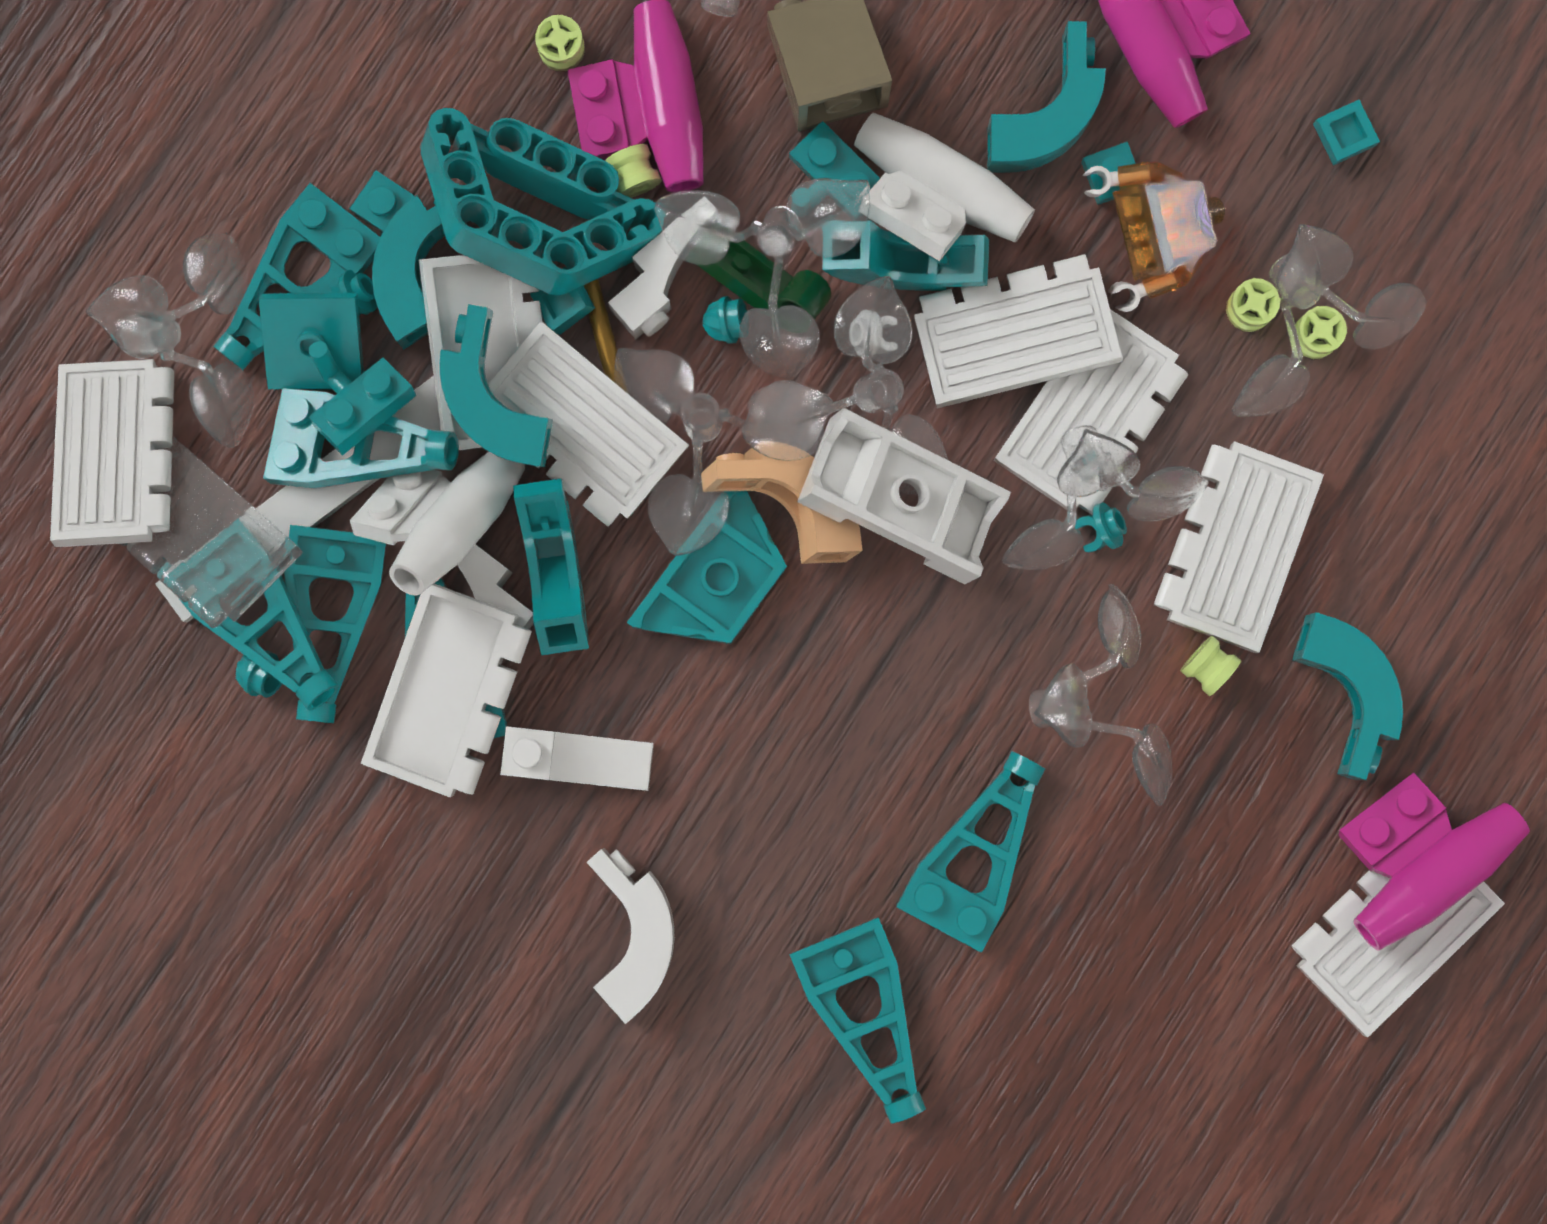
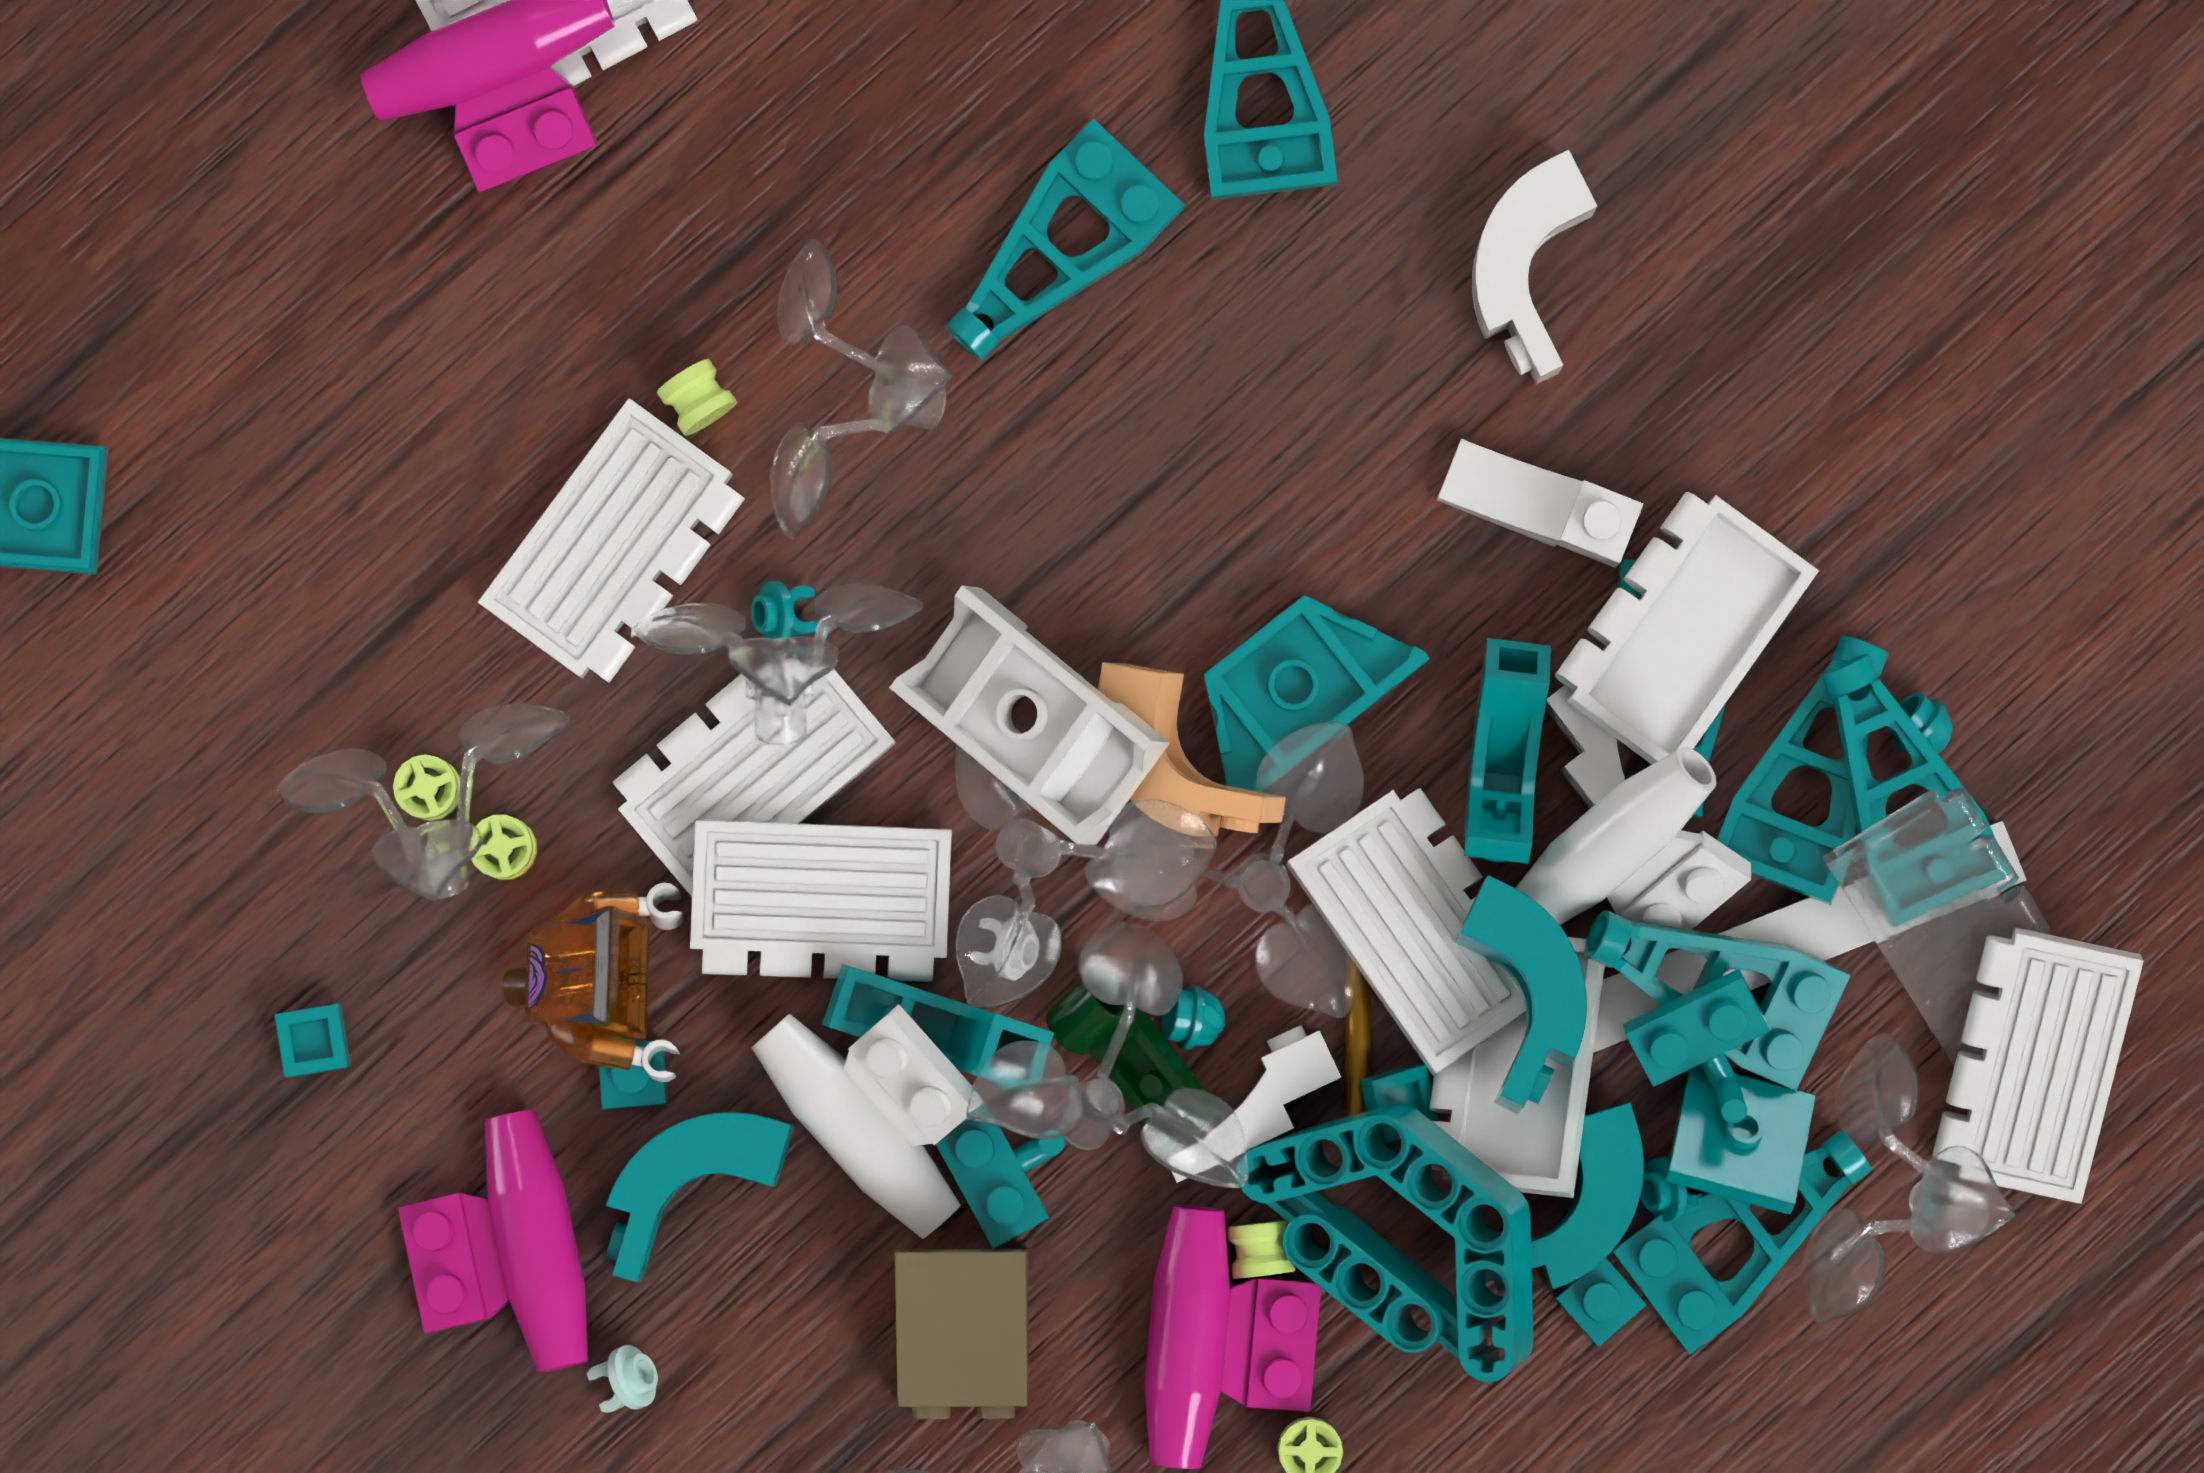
camera: 160 degrees left, 0 degrees up
(1367, 680) = (500, 320): teal arch -> none

